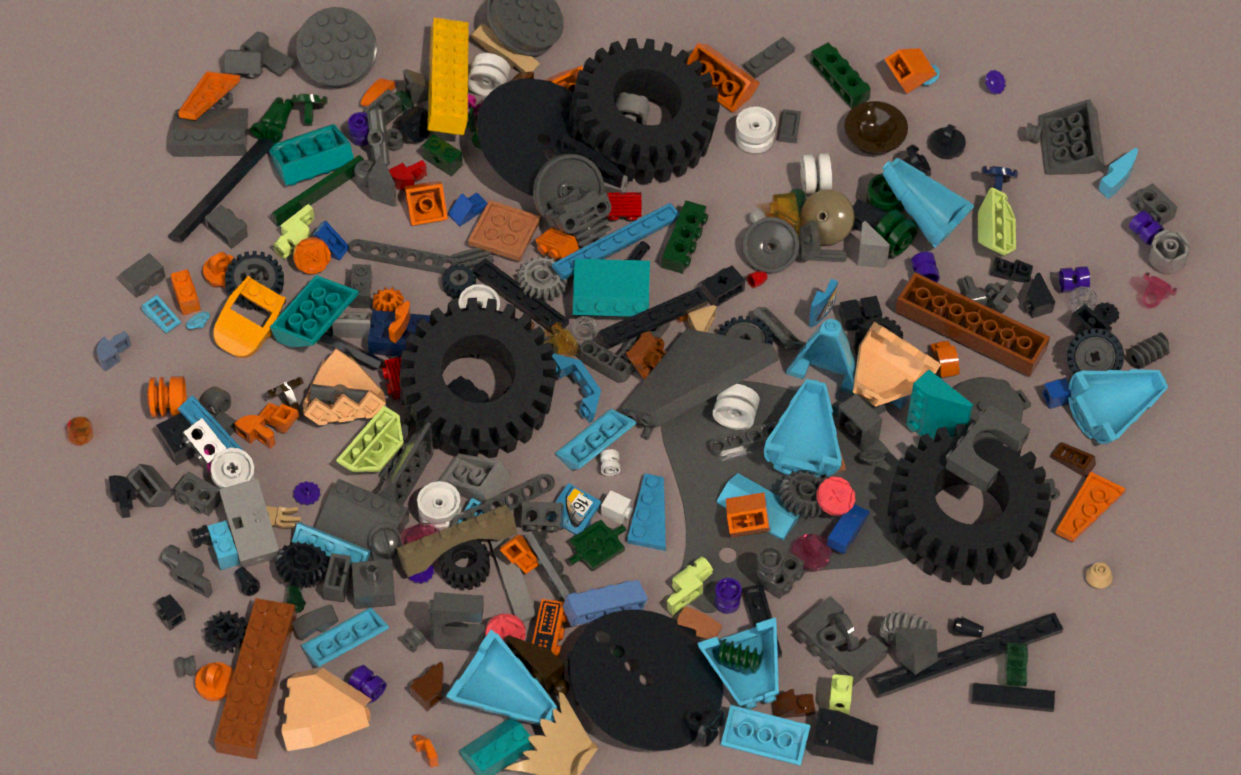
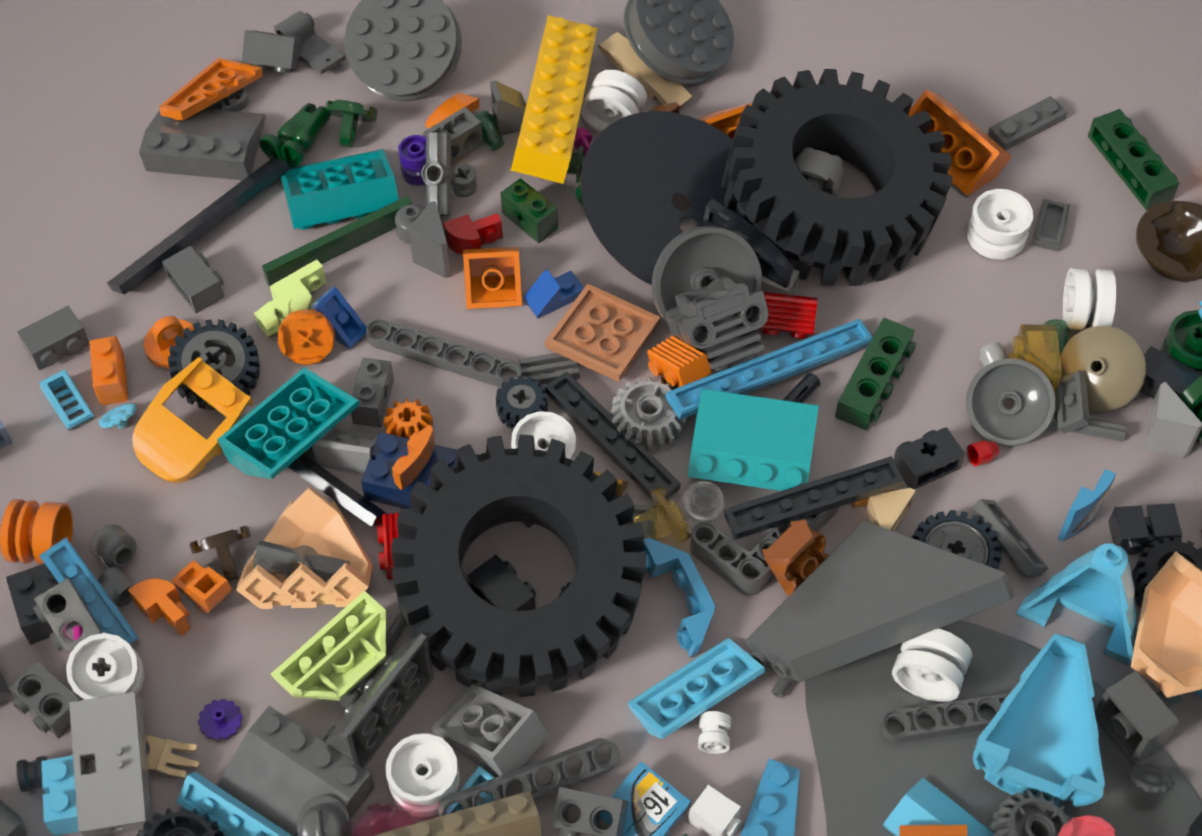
camera: 10 degrees right, 0 degrees up
(414, 124) = (494, 161): black tile -> none

